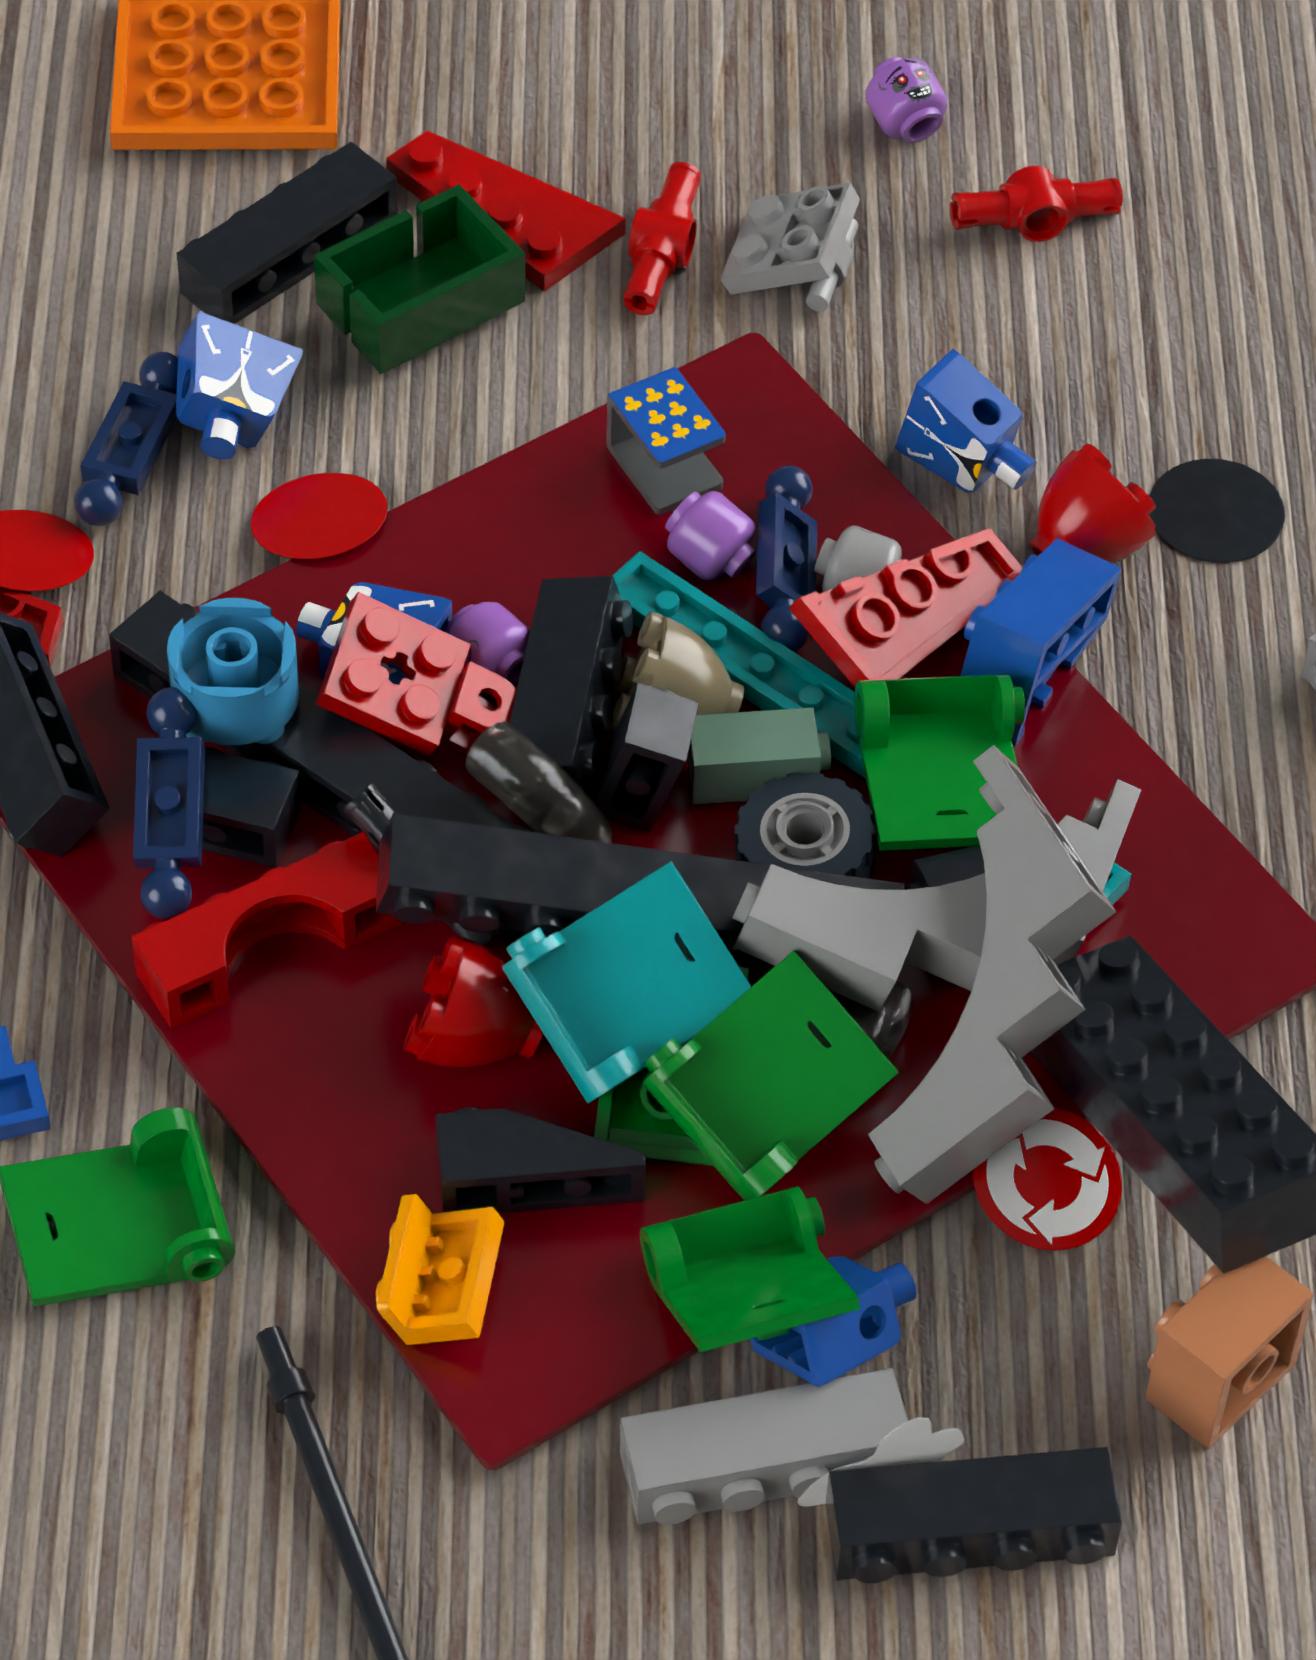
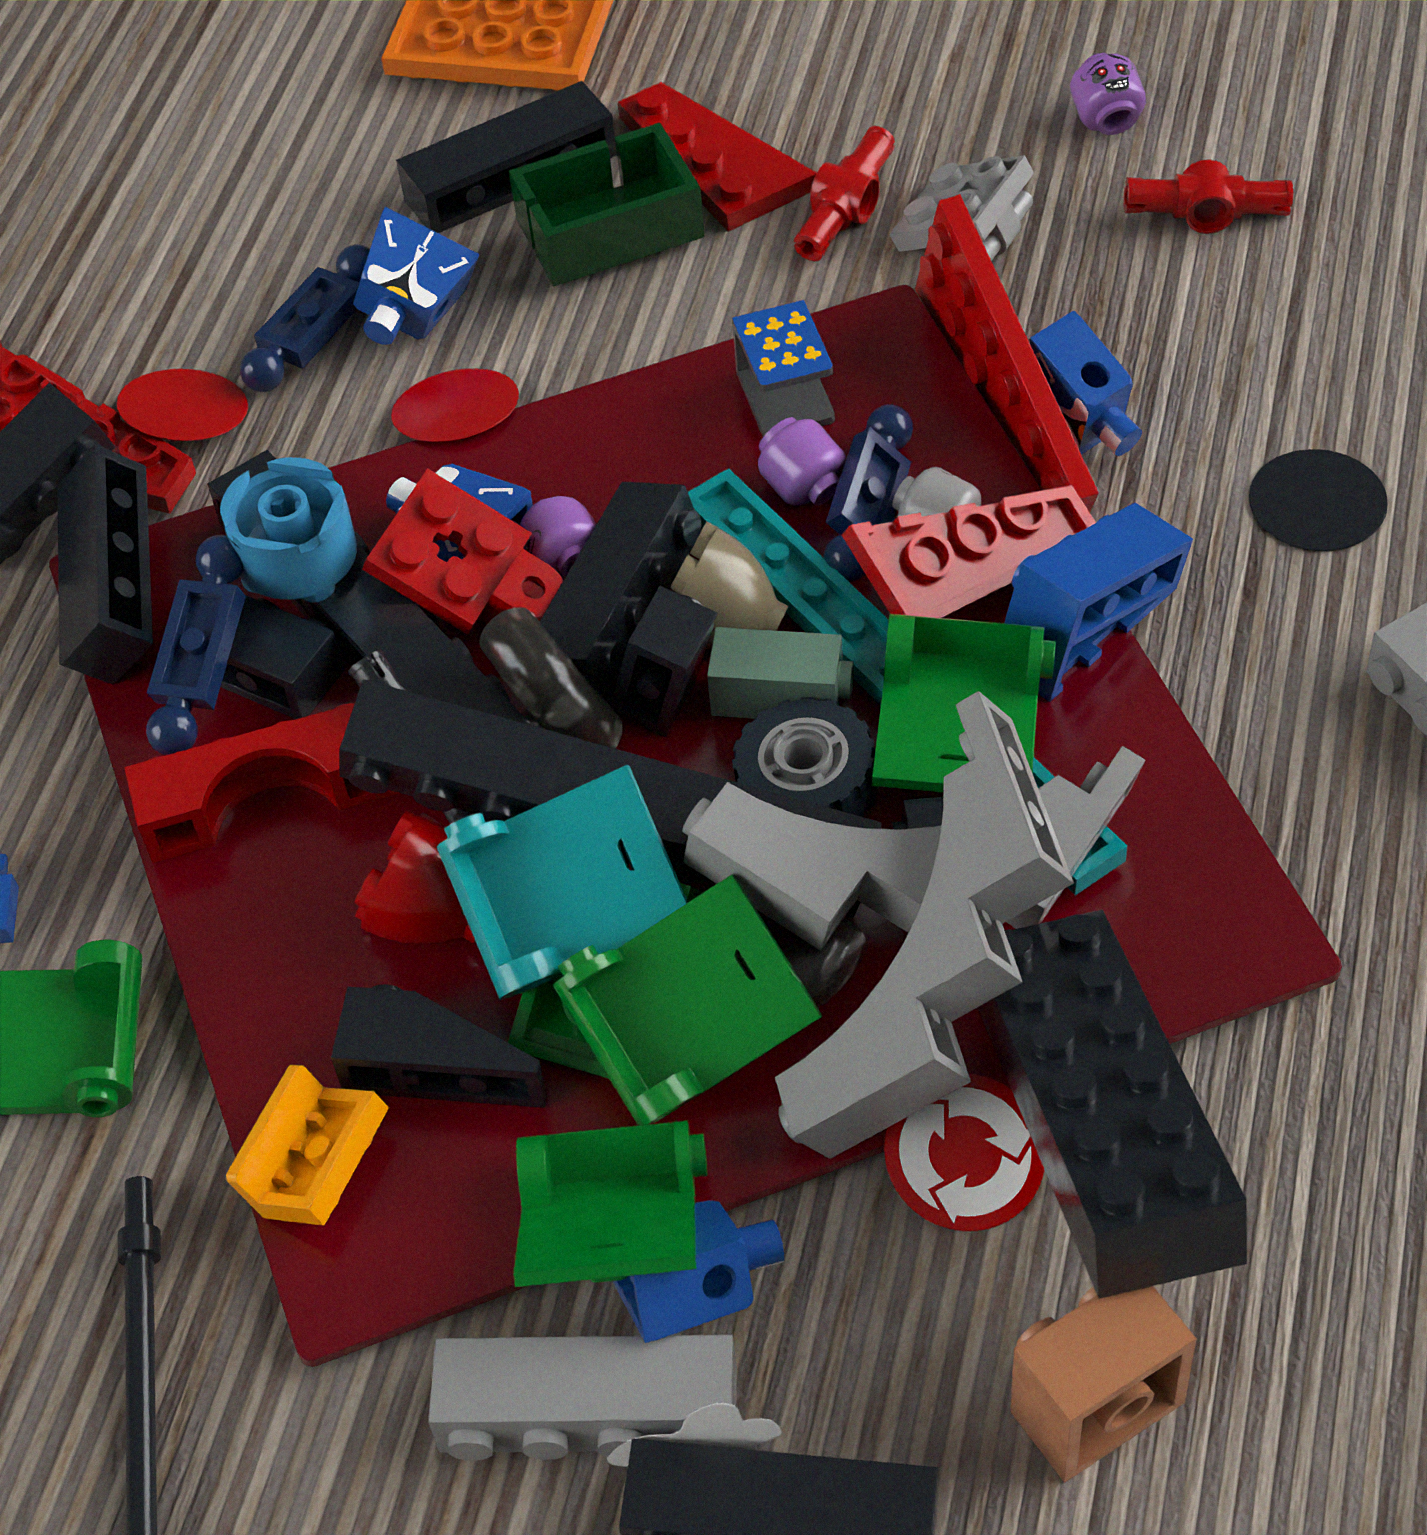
camera: 20 degrees right, 0 degrees up
(852, 367) = (985, 333): none -> red wing
(1093, 509) = (1184, 483): red piece -> none

